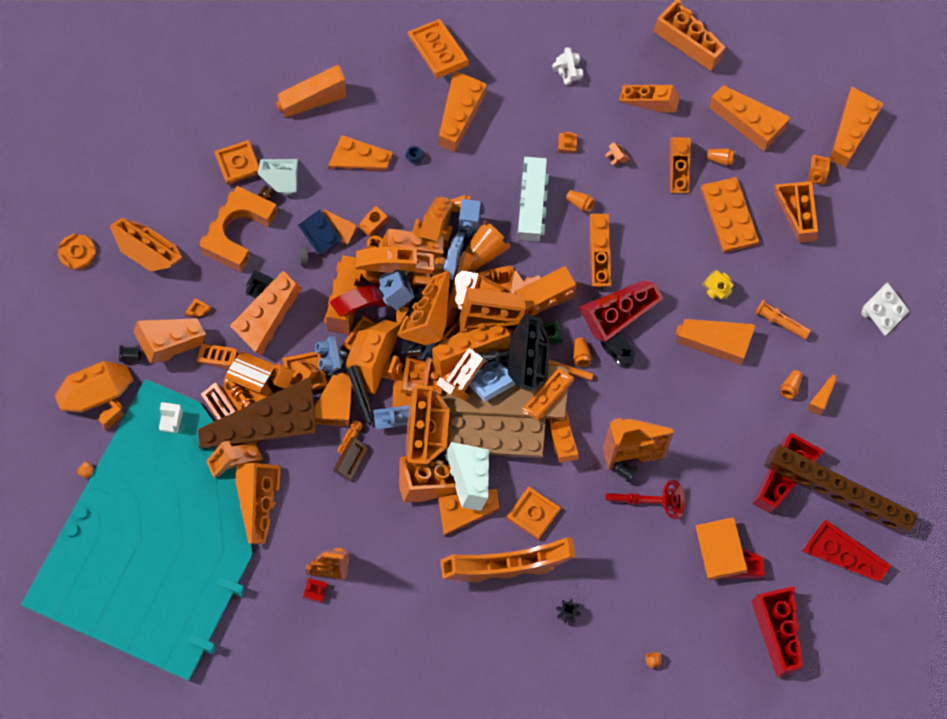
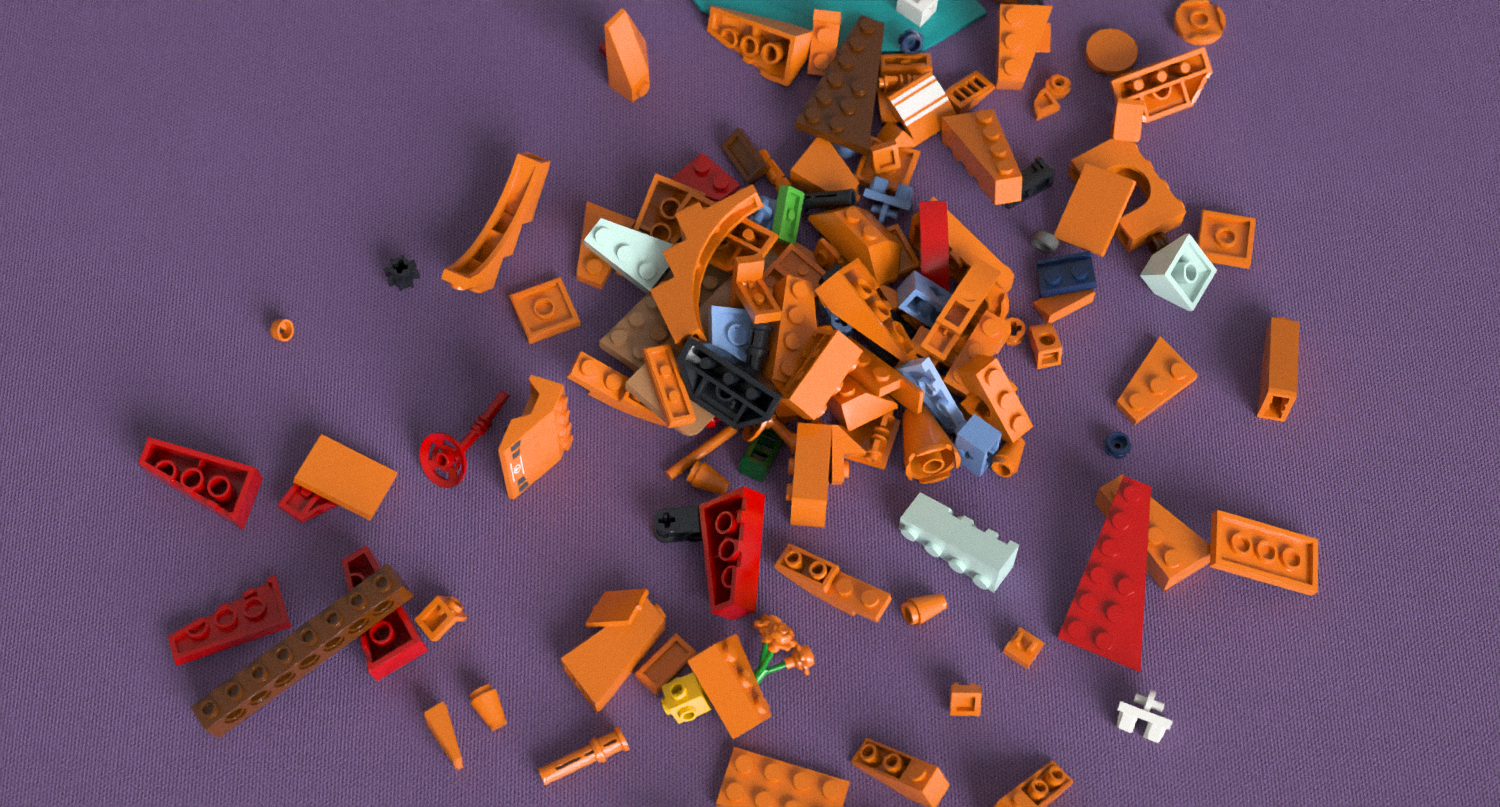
camera: 125 degrees right, 5 degrees down
(133, 290) = (1111, 52): none -> orange tile
(179, 311) = (1058, 91): none -> orange plate
(193, 245) = (1127, 120): none -> orange slope
(202, 406) = (914, 46): none -> dark blue plate
(268, 234) = (1094, 209): none -> orange tile
(382, 475) = (708, 178): none -> red wing
(391, 399) = (787, 214): none -> bright green plate
(438, 429) = (688, 259): none -> orange arch
(513, 109) = (1111, 594): none -> red wing
(659, 245) = (775, 637): none -> orange plant
(694, 349) = (617, 608): none -> orange piece
(695, 266) = (731, 685): none -> orange wedge
(701, 311) = (665, 664): none -> orange tile
(760, 441) = (440, 616): none -> orange bracket

